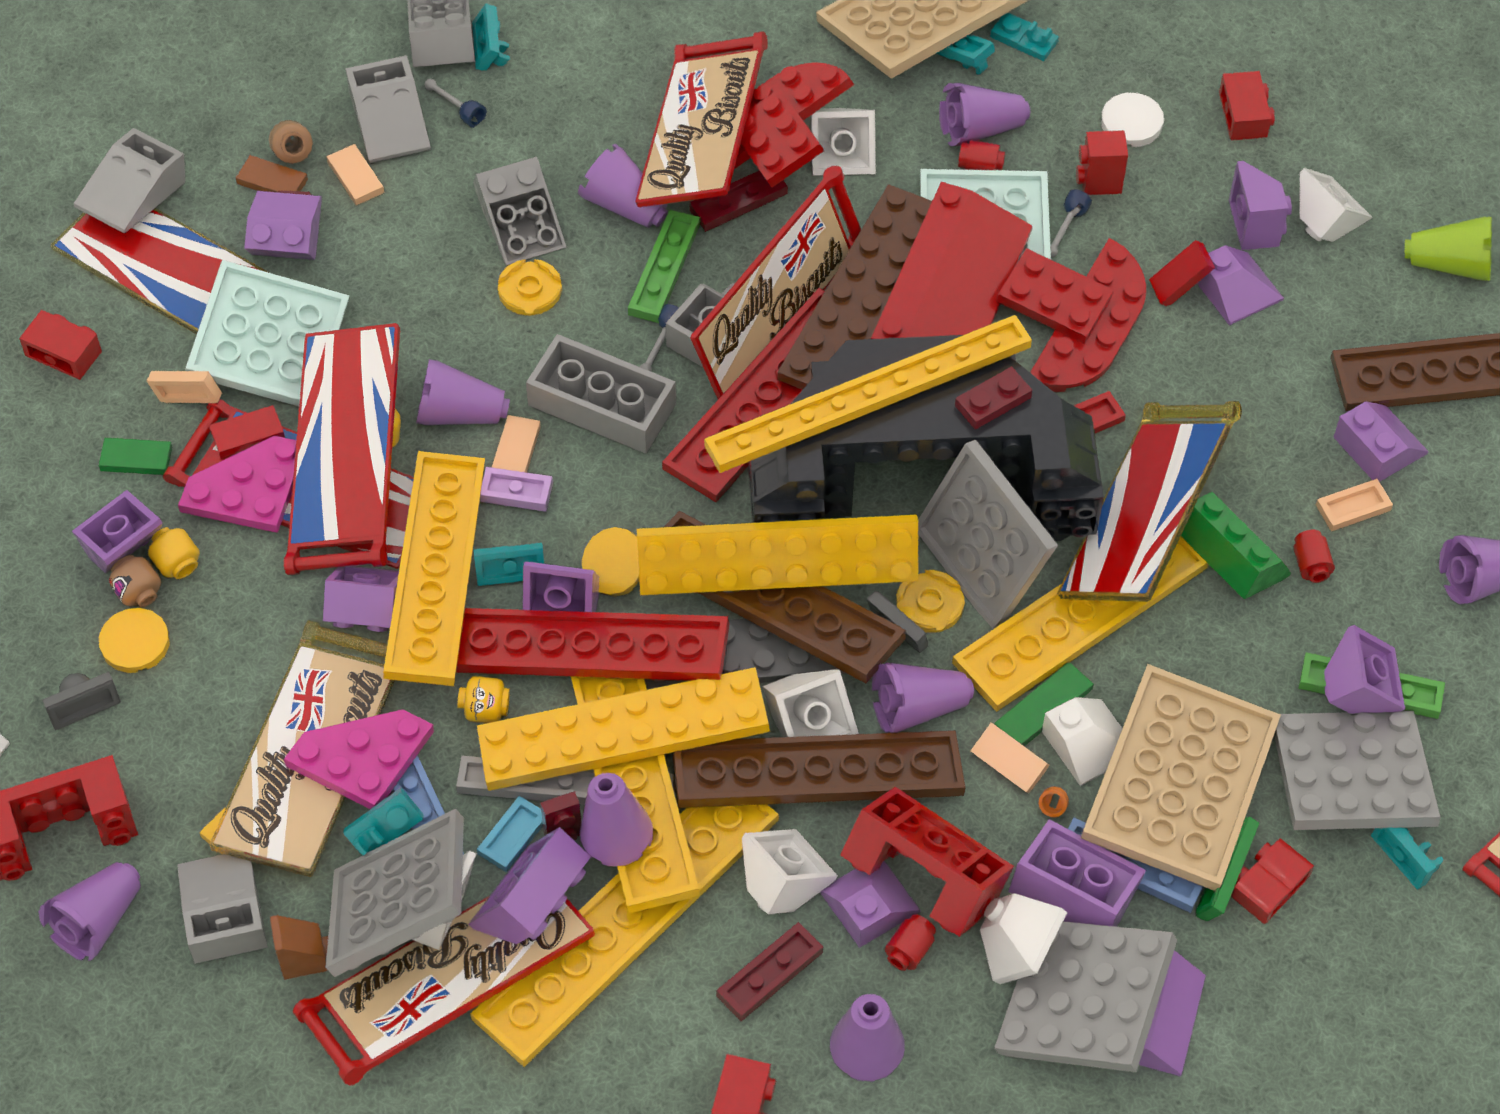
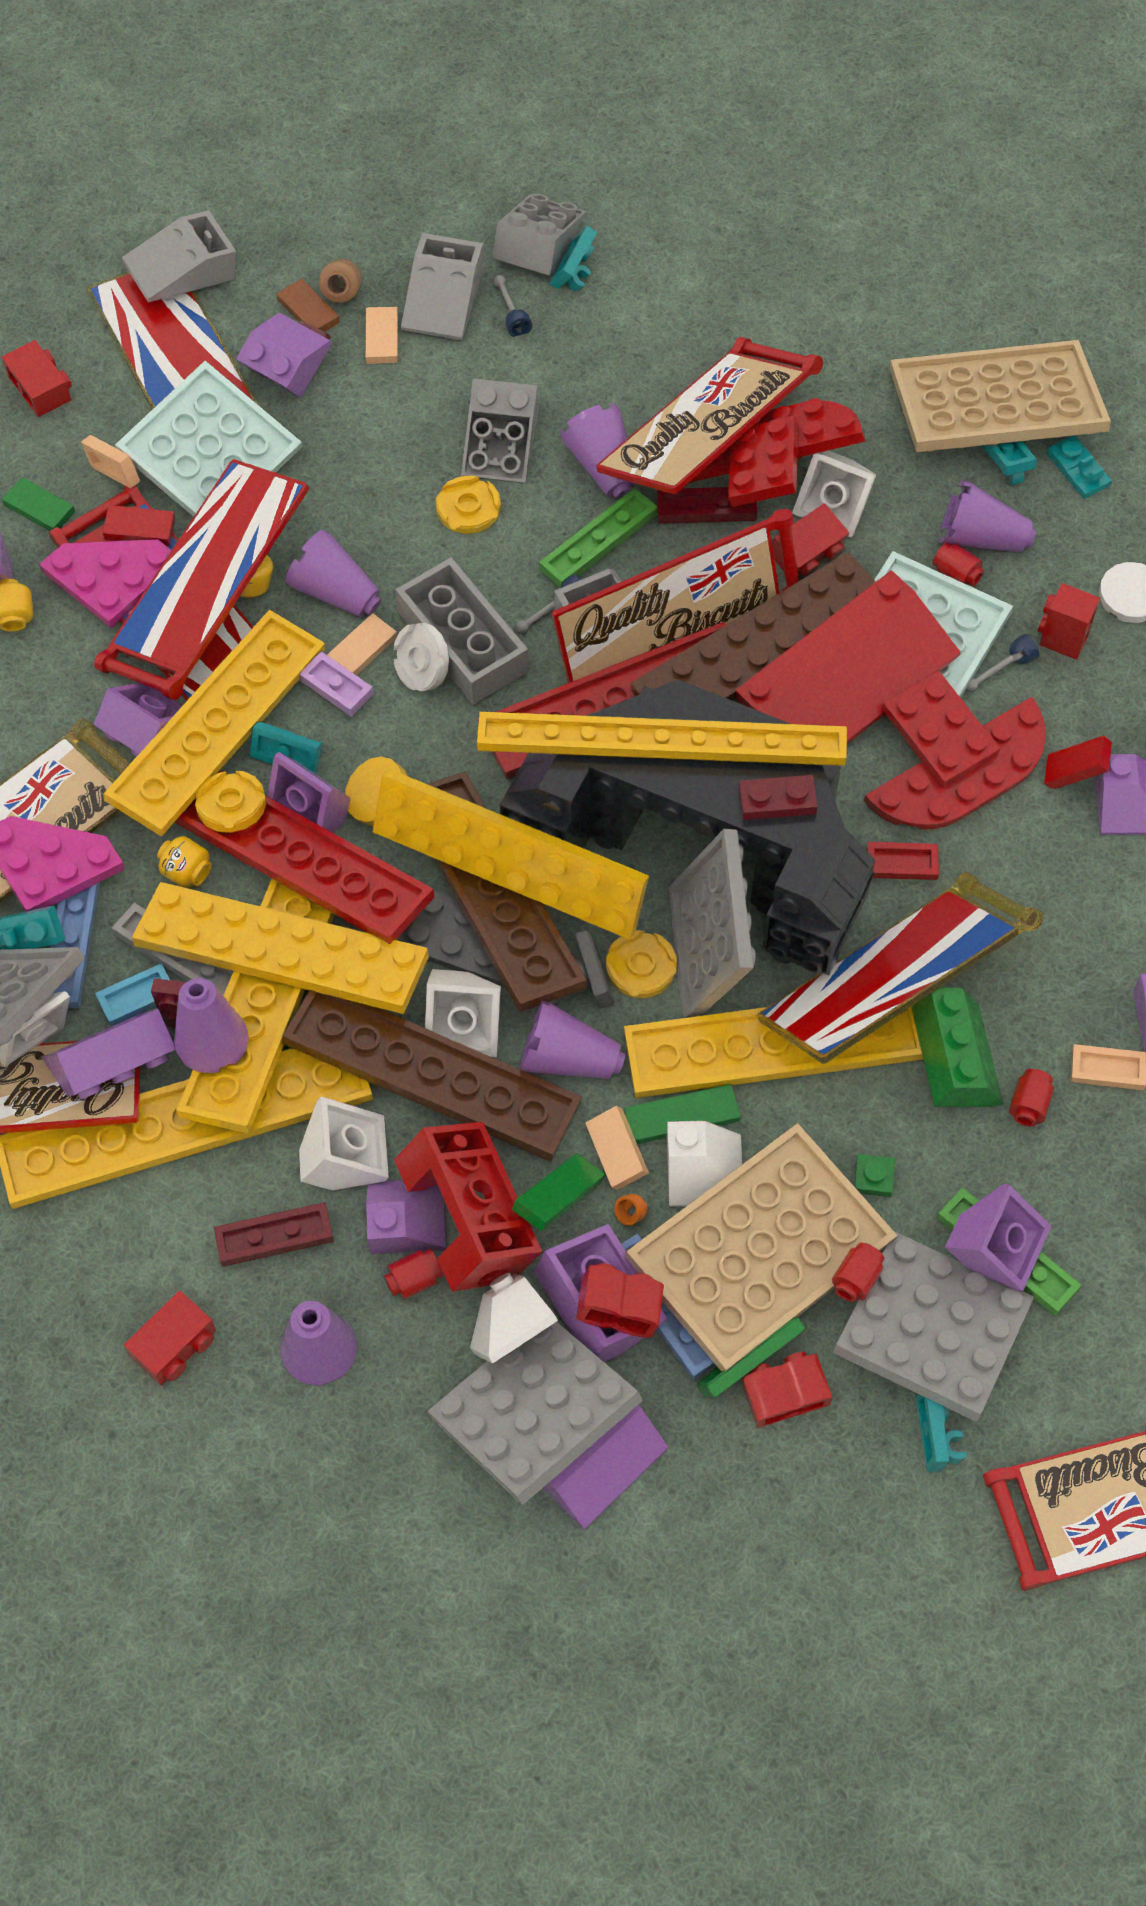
camera: 30 degrees right, 5 degrees up
(495, 628) = (230, 801): none -> yellow tile
(581, 431) = (421, 657): none -> white tile
(858, 182) = (814, 538): none -> red brick
(991, 814) = (558, 1192): none -> green tile
(1107, 870) = (620, 1300): none -> red brick
(1228, 677) = (874, 1175): none -> green plate
(1274, 756) = (858, 1272): none -> red brick

